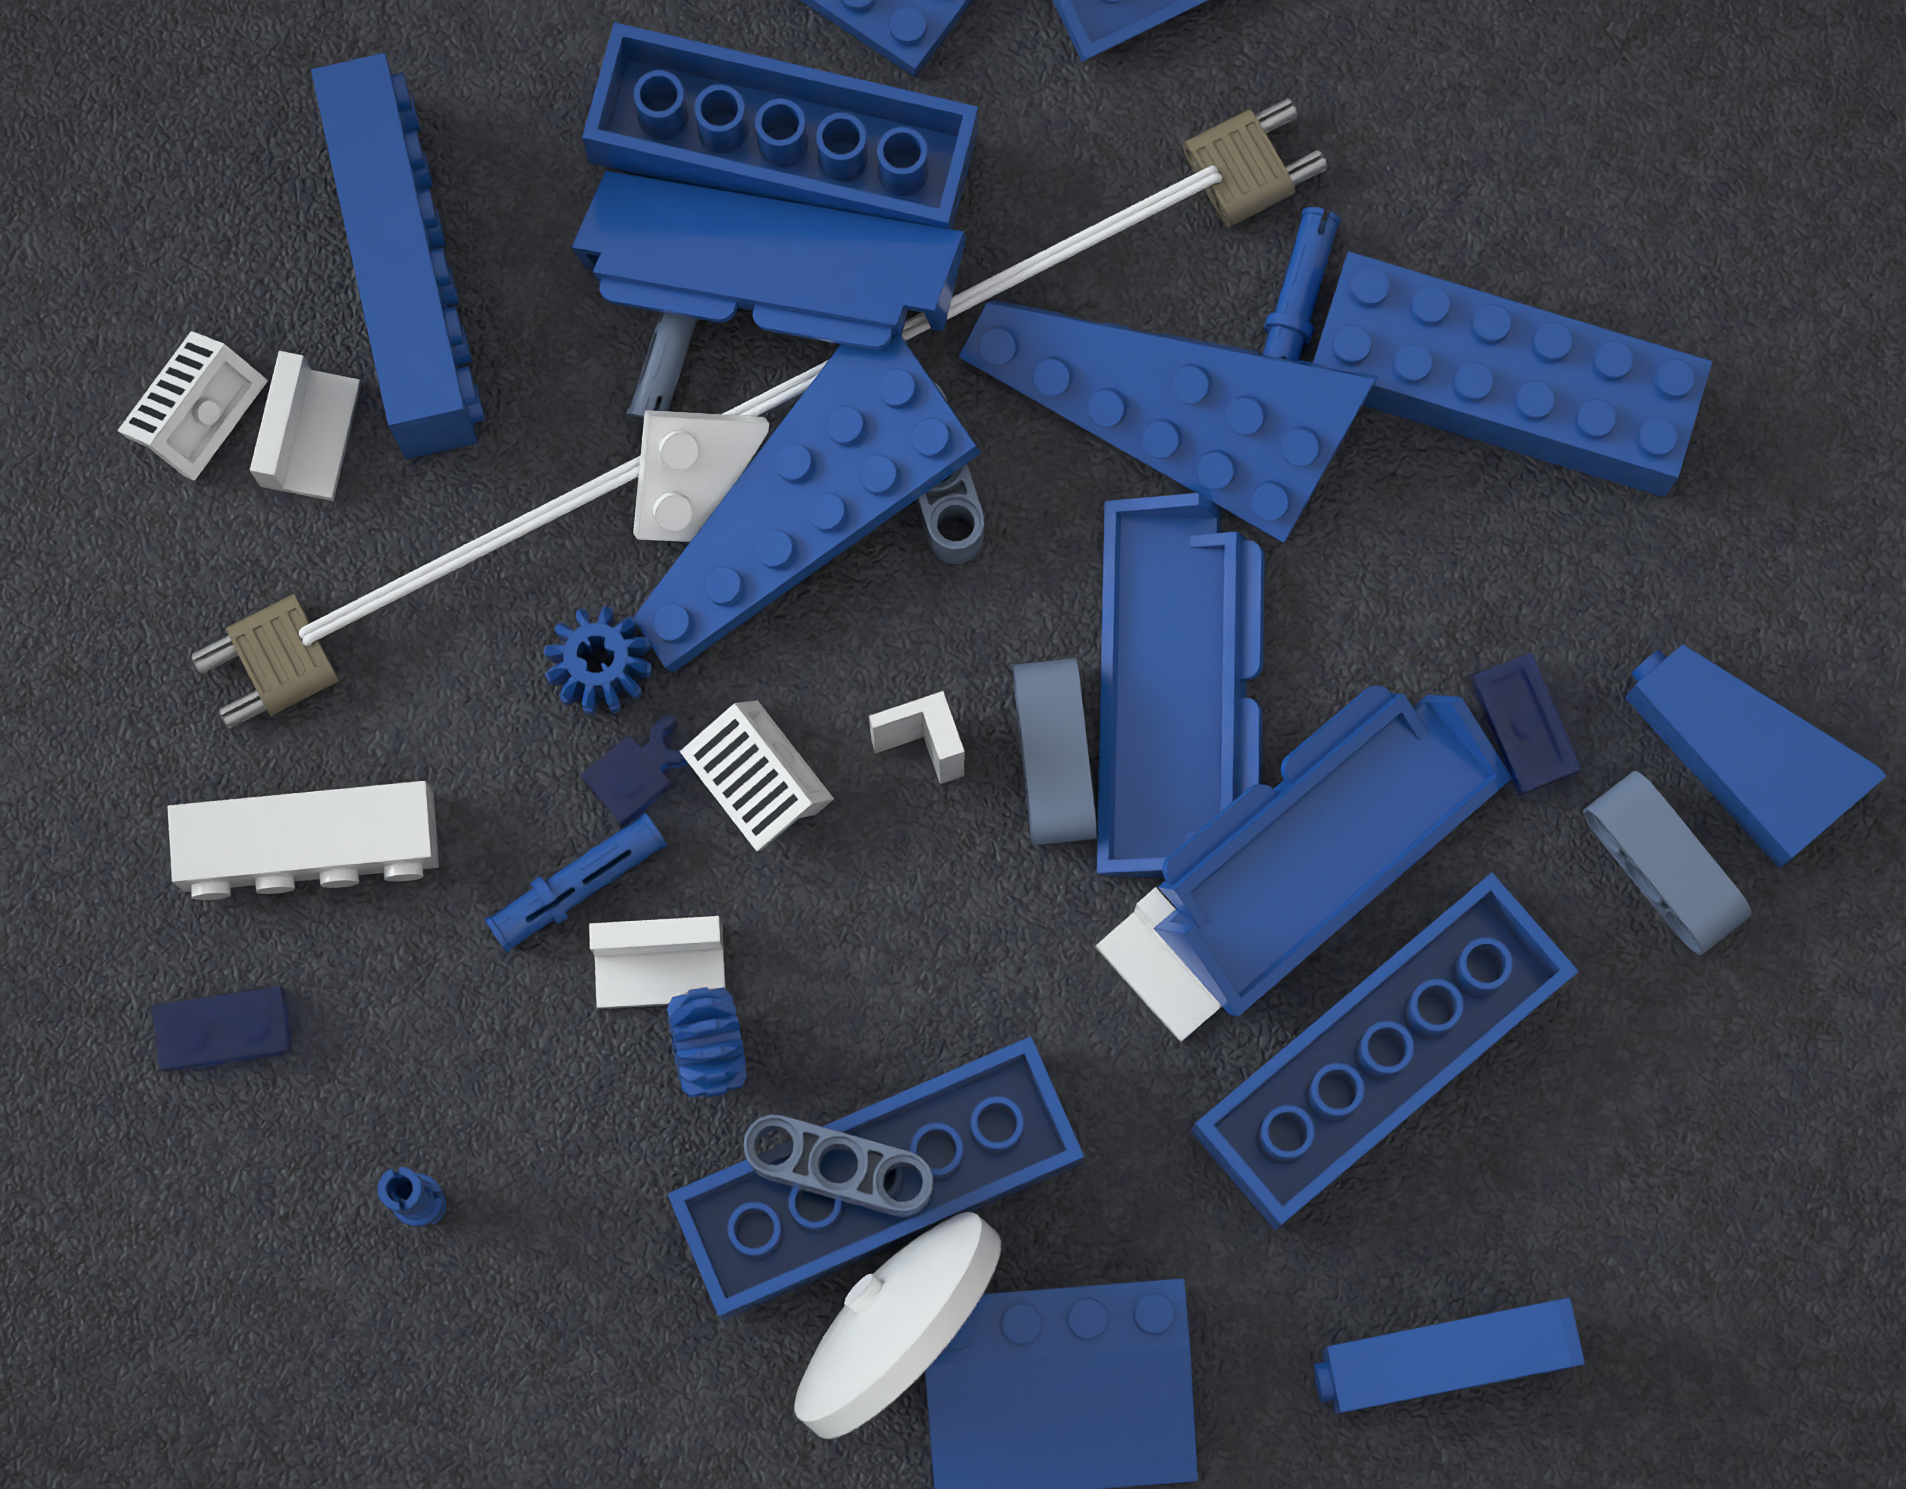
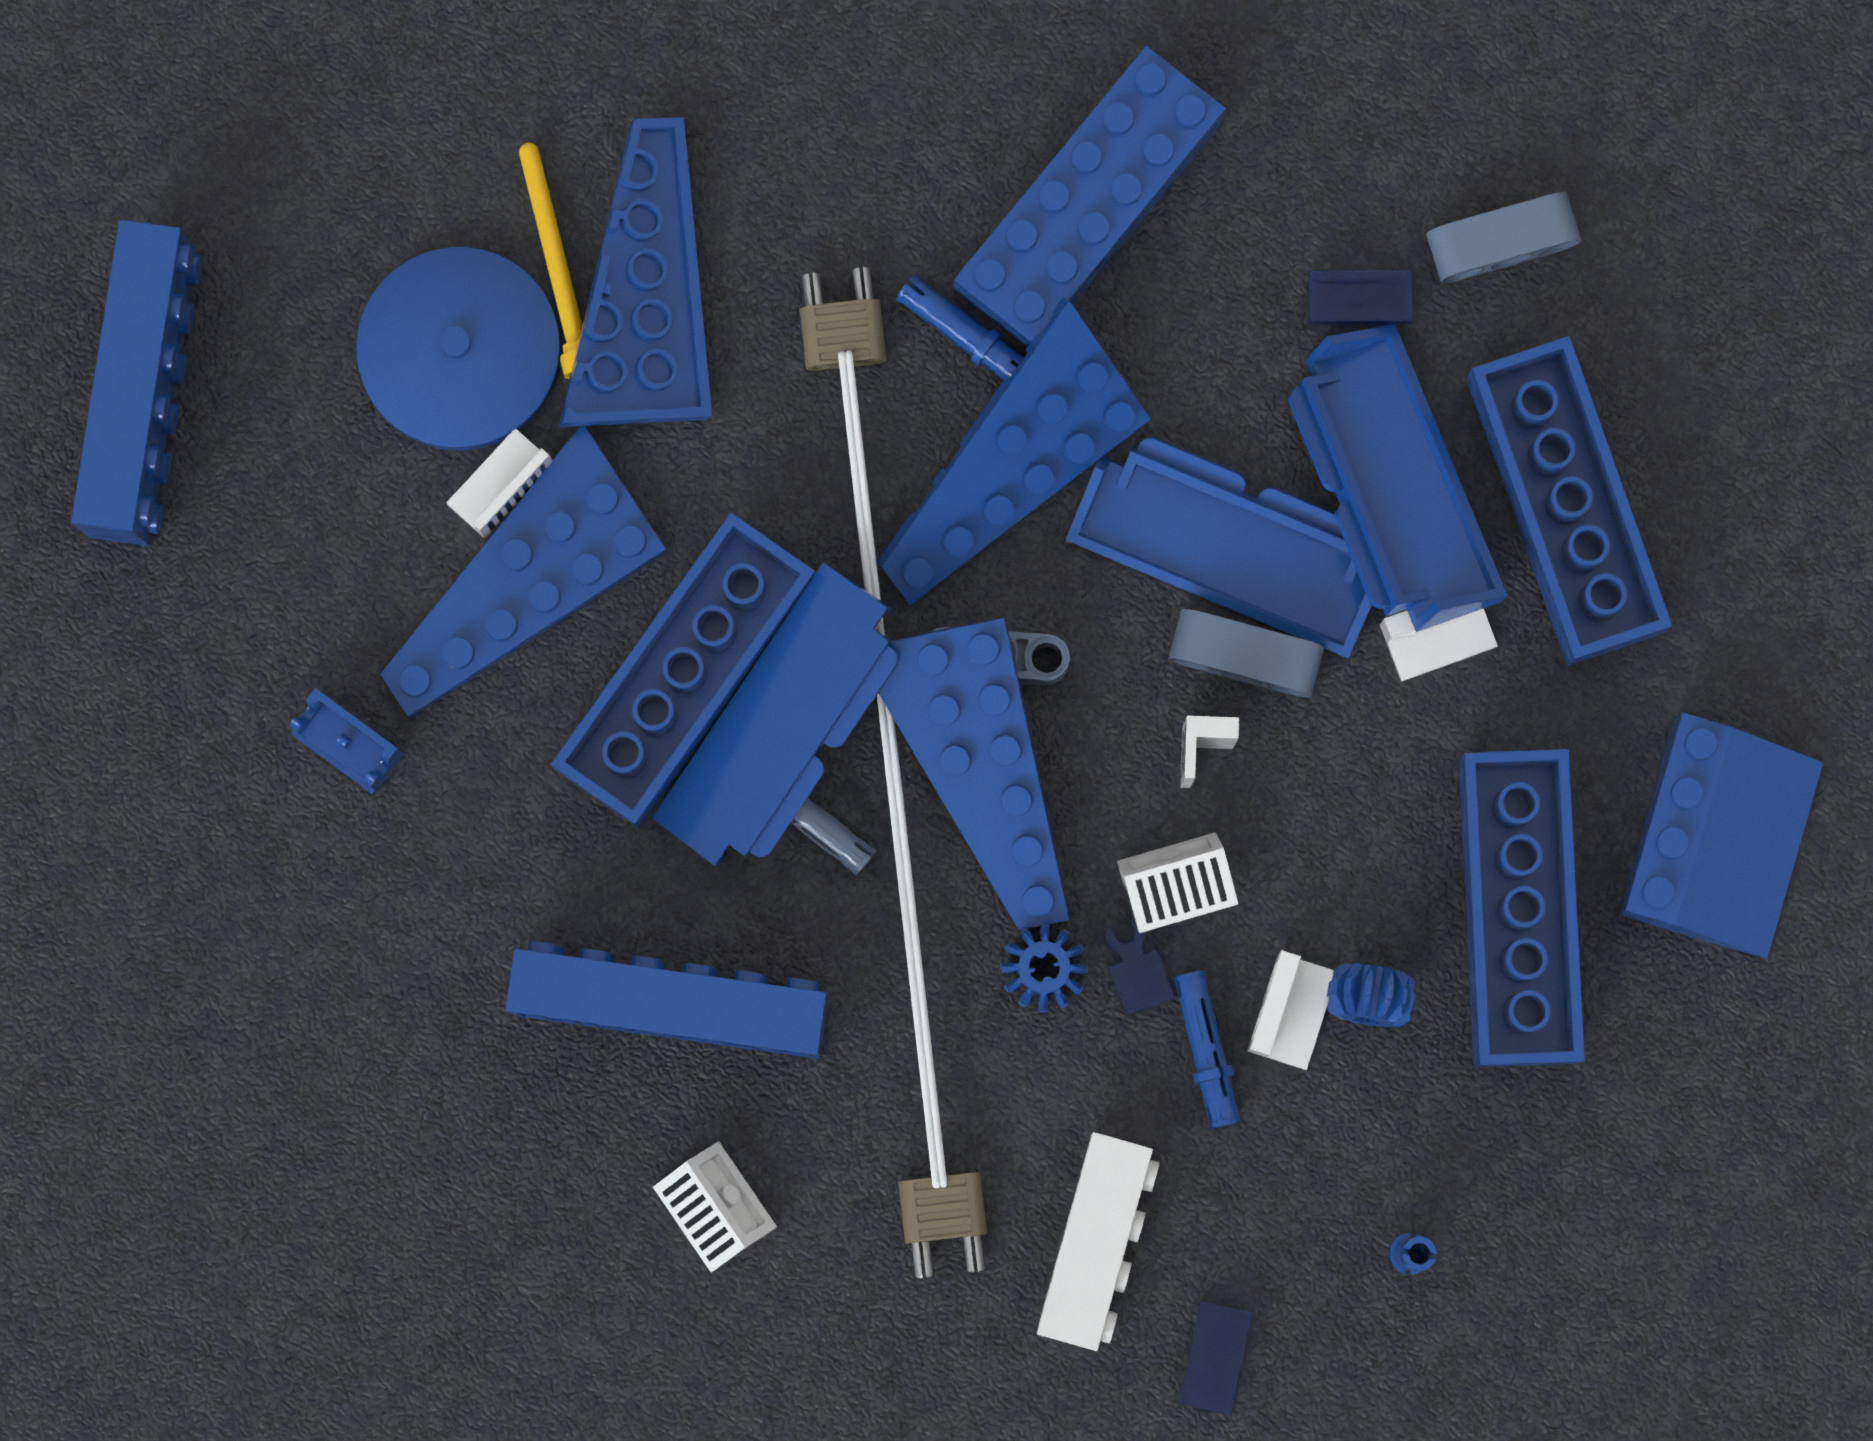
camera: 65 degrees left, 5 degrees up
(304, 429) = (770, 1124): white panel -> none
(689, 469) = (924, 841): white wing -> none
(814, 1142) = (1534, 914): sand blue beam -> none
(896, 1324) = (1646, 931): white dish -> none
(1449, 1356) = (1808, 543): blue slope -> none
(1749, 752) = (1451, 140): blue slope -> none

